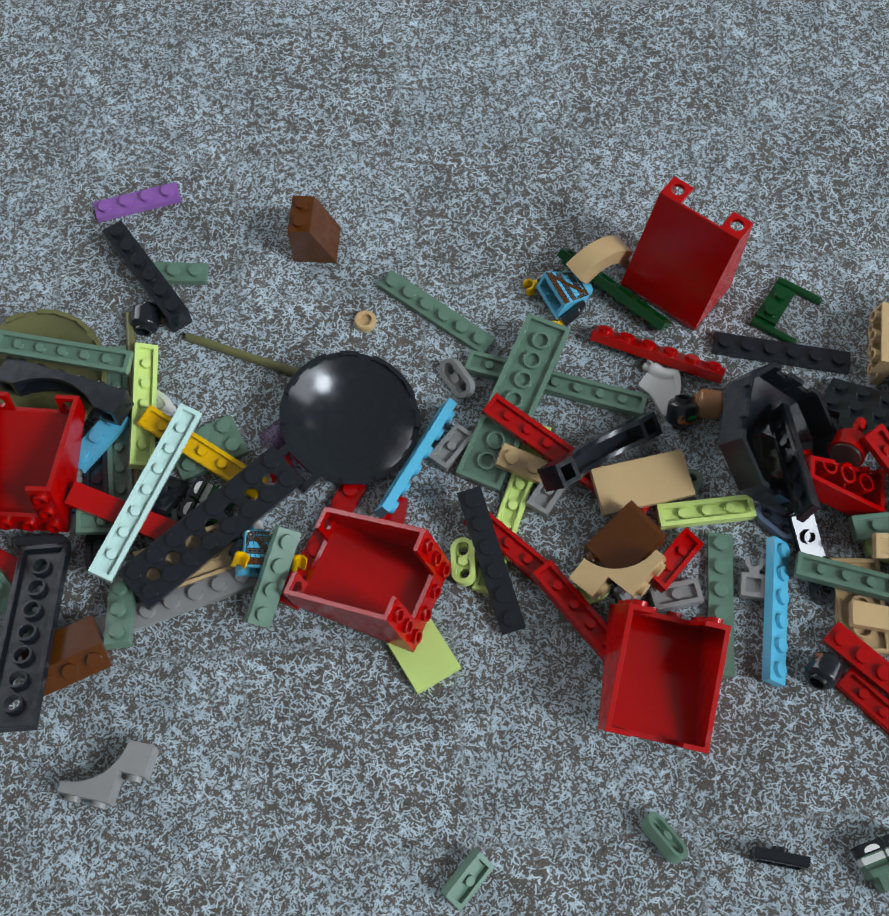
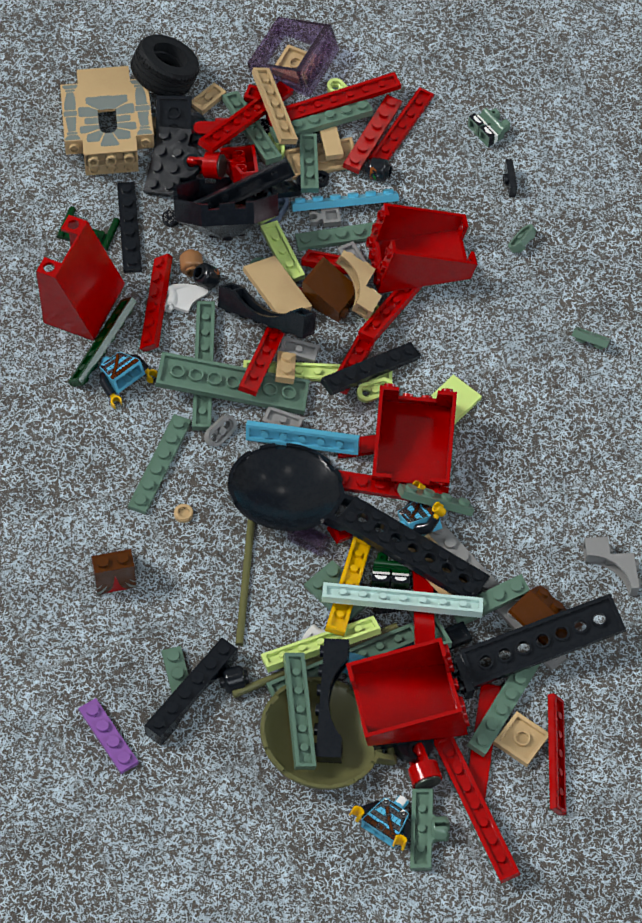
camera: 110 degrees left, 5 degrees down
(598, 256) = (86, 344): tan arch -> none

